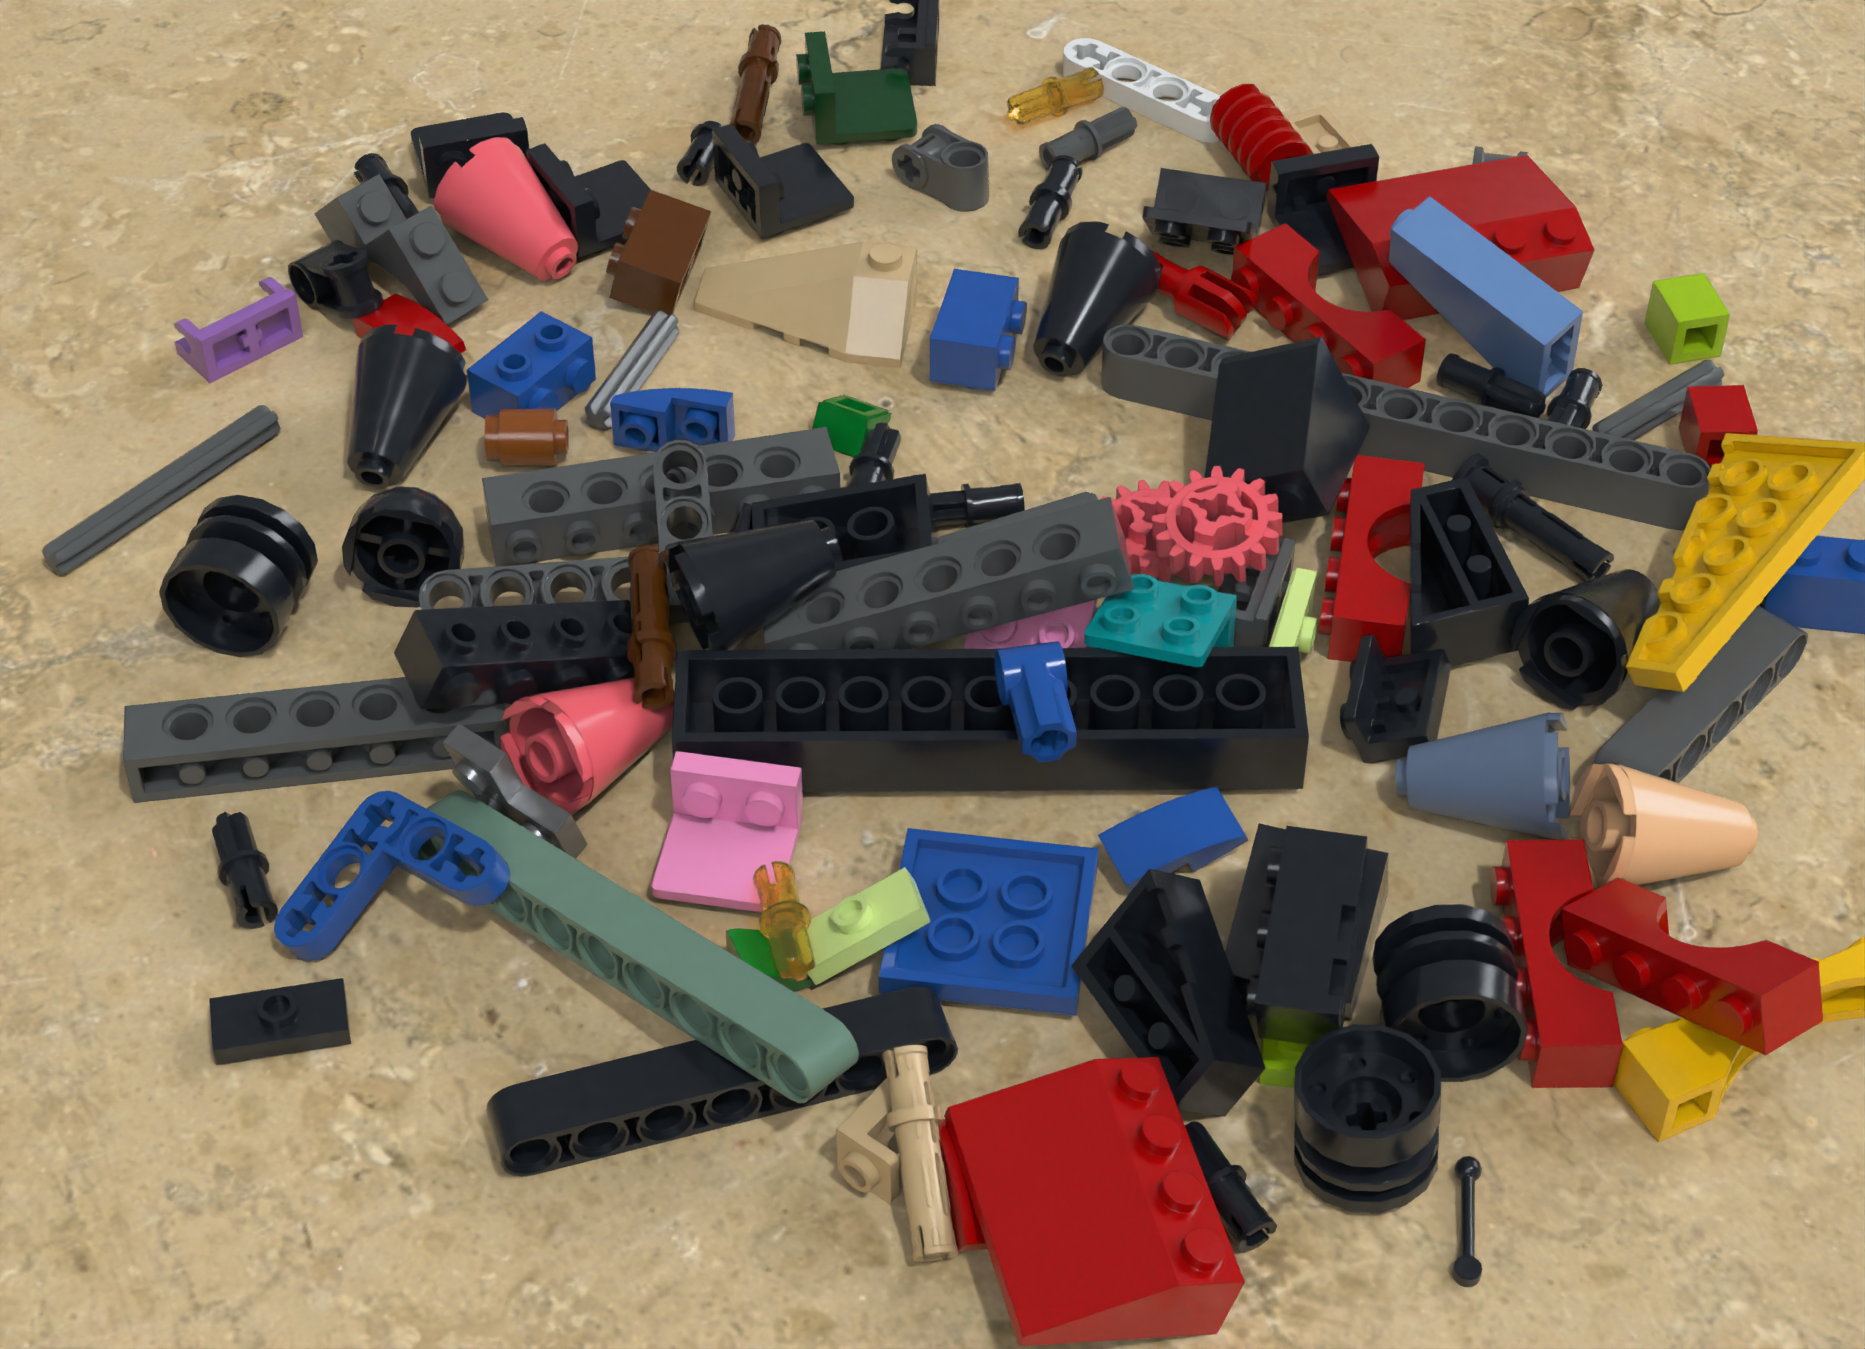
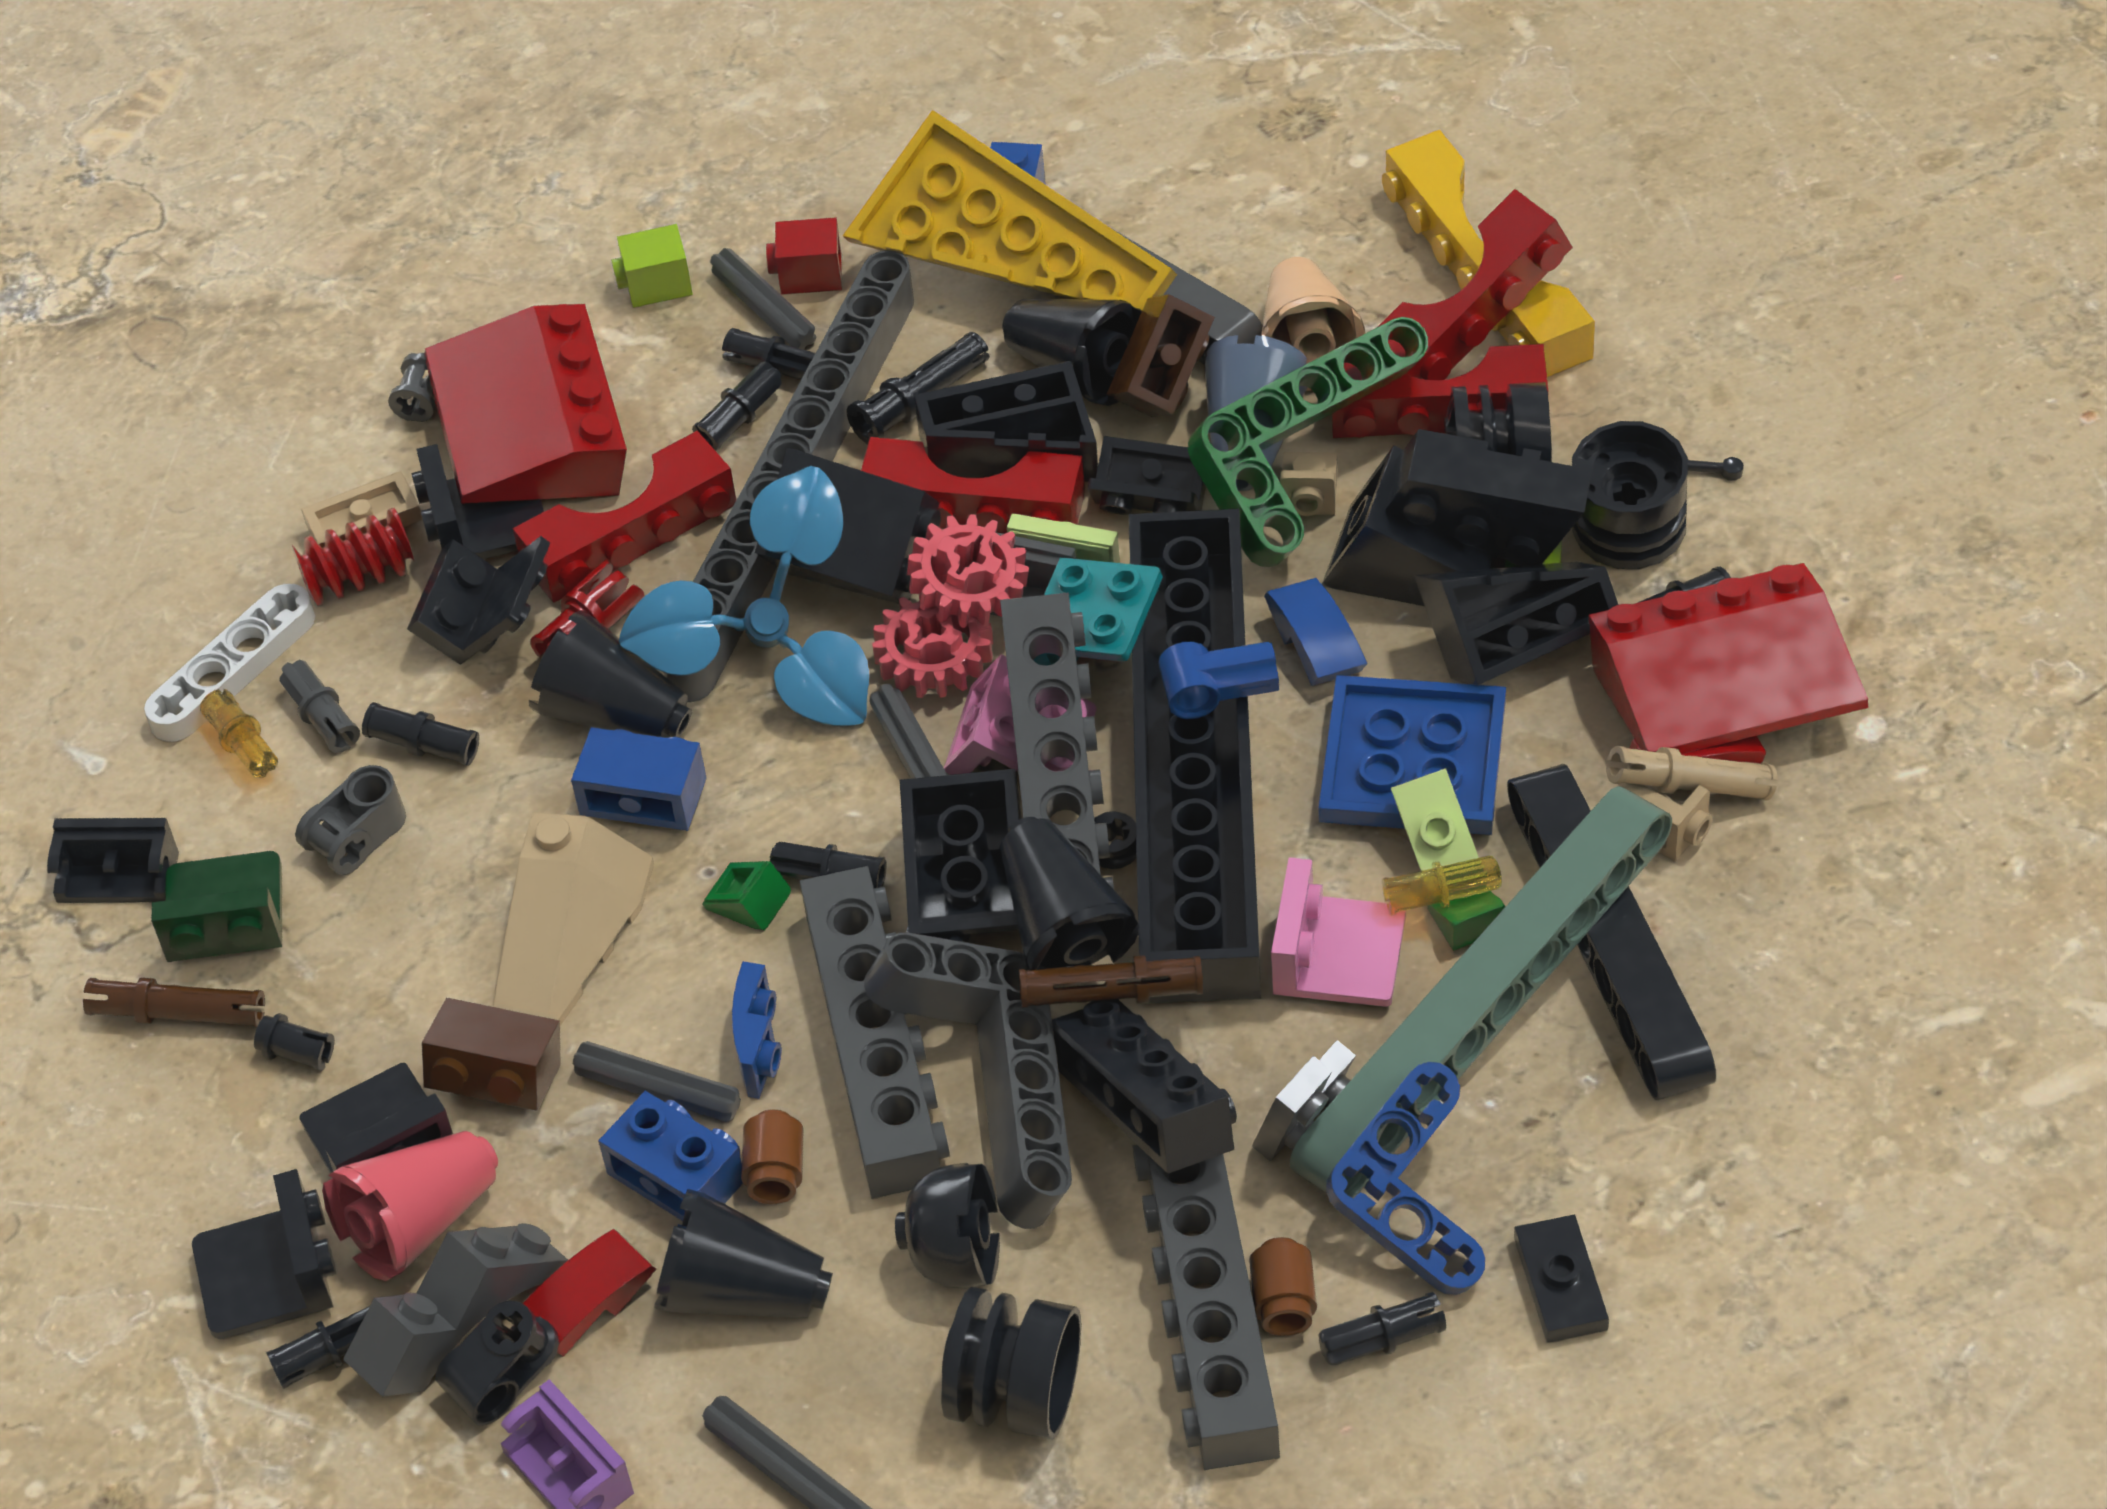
camera: 85 degrees left, 5 degrees up
(305, 789) = (1283, 1286): none -> dark orange brick
(580, 739) = (1235, 1046): coral cone -> none
(777, 188) = (367, 966): black bracket -> none
(977, 504) = (881, 788): black axle -> none
(1221, 349) = (678, 632): none -> dark azure plant
(1417, 847) = (1310, 481): none -> tan bracket
(1453, 773) = (1289, 415): none -> green beam
(1487, 296) = (671, 366): medium blue slope -> none
(1579, 680) = (1161, 356): none -> reddish brown brick

